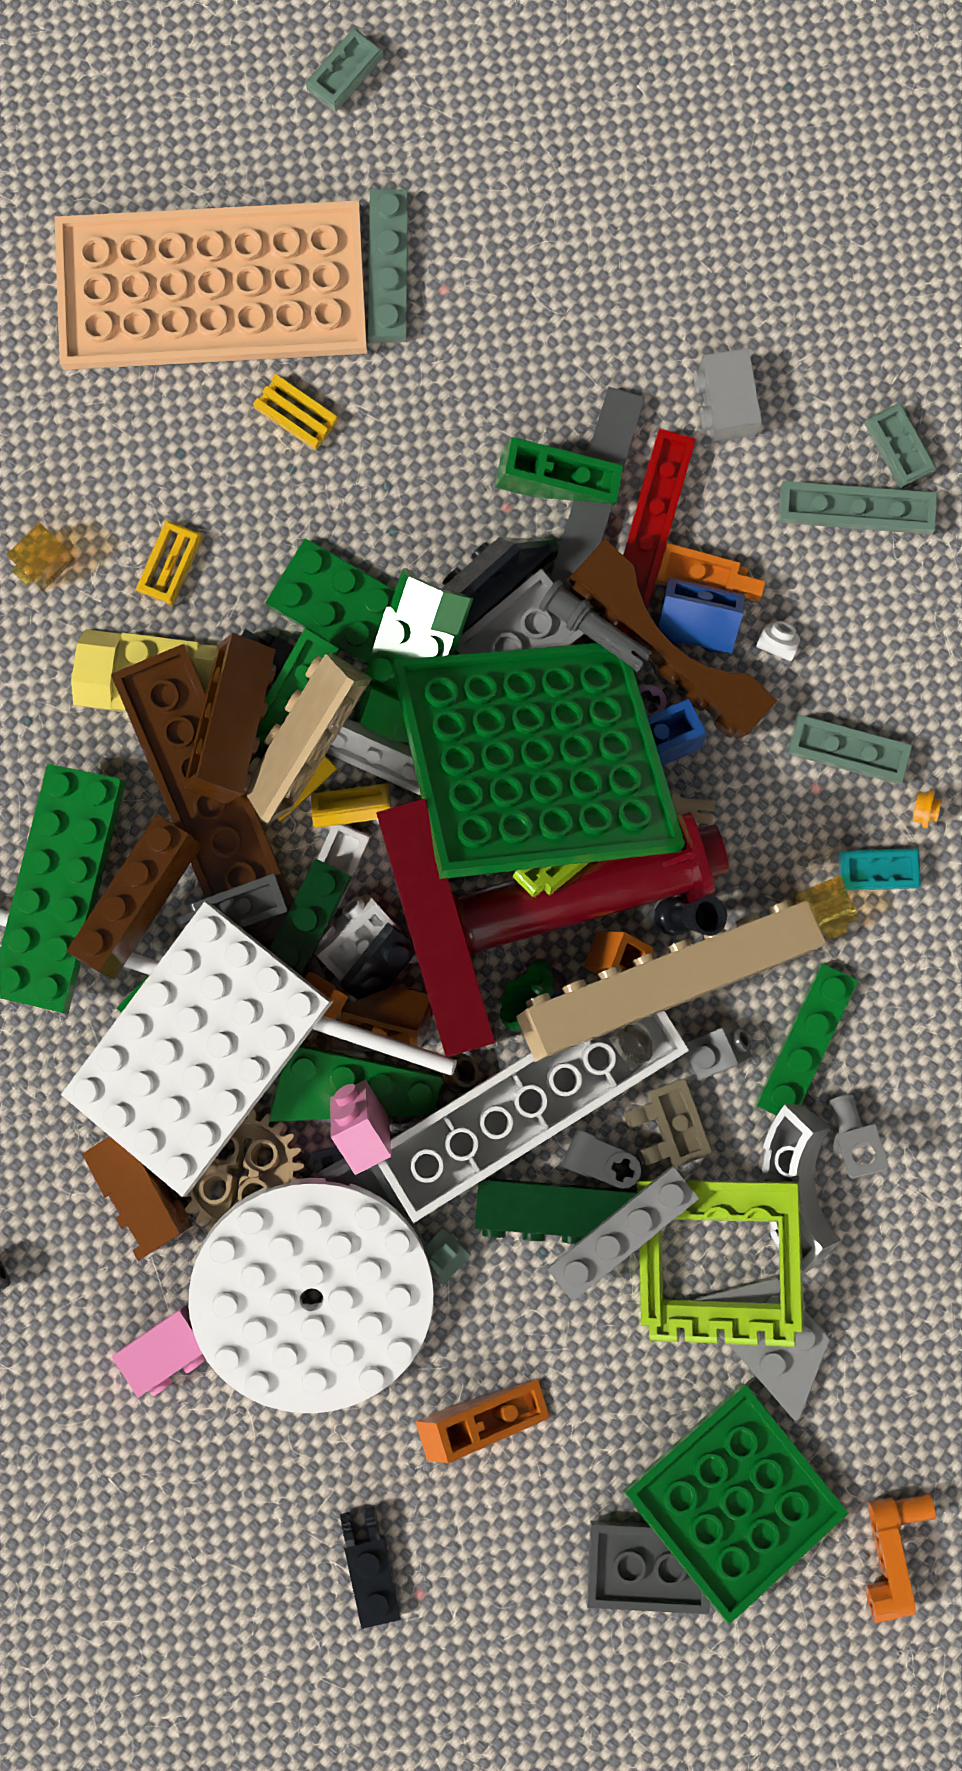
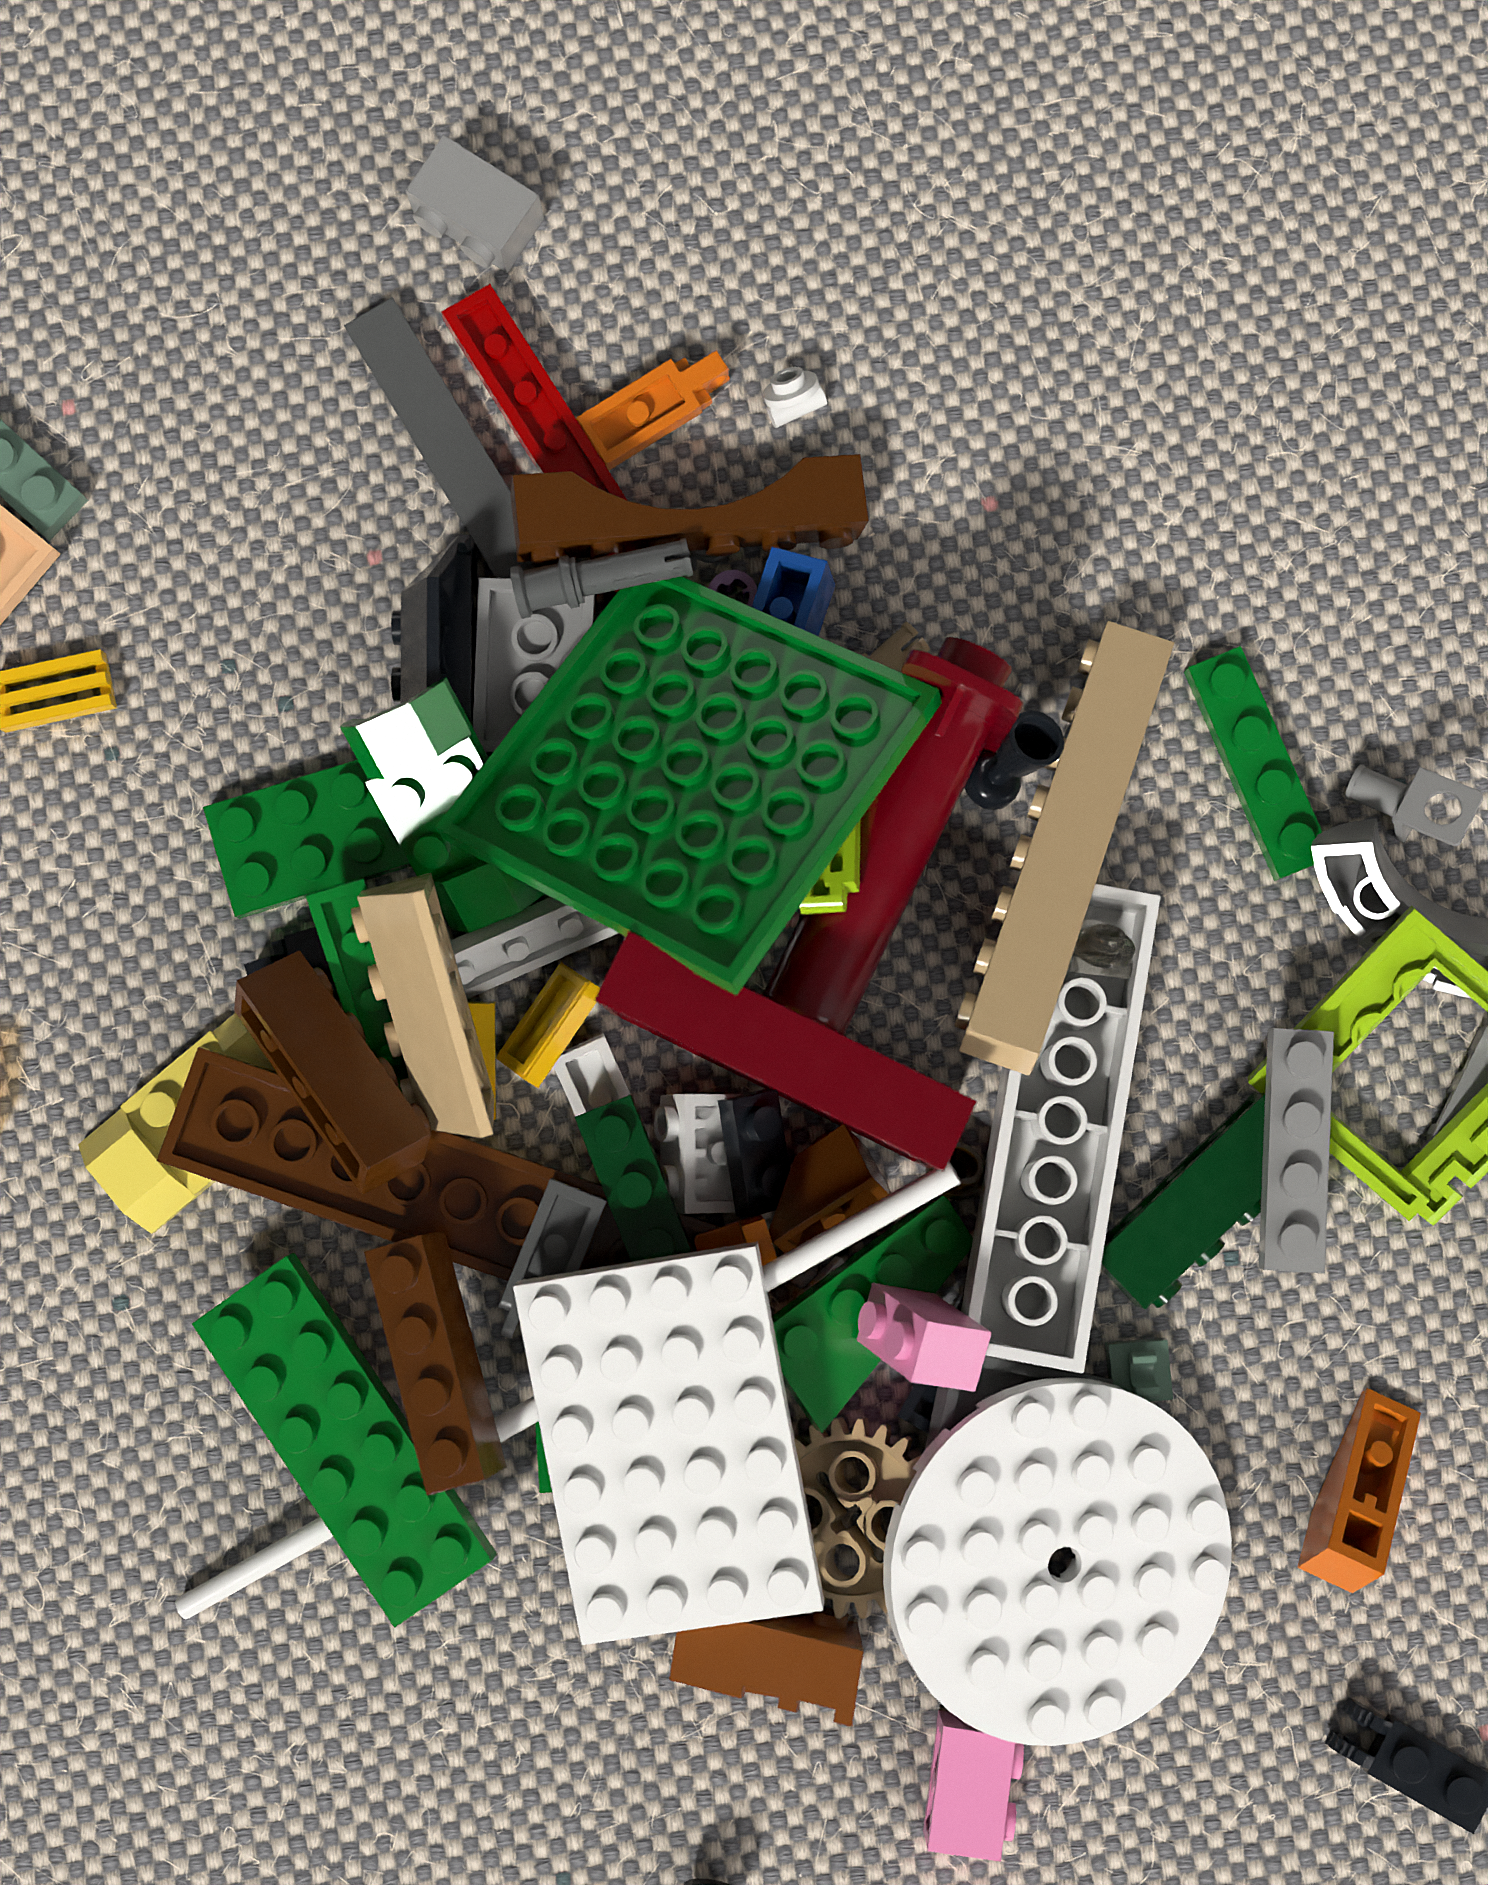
camera: 45 degrees left, 0 degrees up
(182, 570) = (112, 1026): yellow tile -> none
(533, 982) = (931, 1010): green hair -> none
(556, 473) = (388, 467): green slope -> none
(595, 1157) = (1183, 1104): dark grey piece -> none
(614, 949) = (976, 880): orange brick -> none
(678, 1124) = (1225, 981): dark tan plate -> none
(701, 615) = (690, 452): blue brick -> none
(718, 1050) = (1183, 864): dark grey bracket -> none
(830, 906) = (1134, 601): clear yellow brick -> none
(849, 749) = (981, 428): sand green plate -> none
(857, 507) = (724, 181): sand green plate -> none
(880, 869) = (1141, 514): teal plate -> none
(900, 445) = (699, 75): sand green plate -> none
(926, 808) = (1120, 403): light orange plate -> none

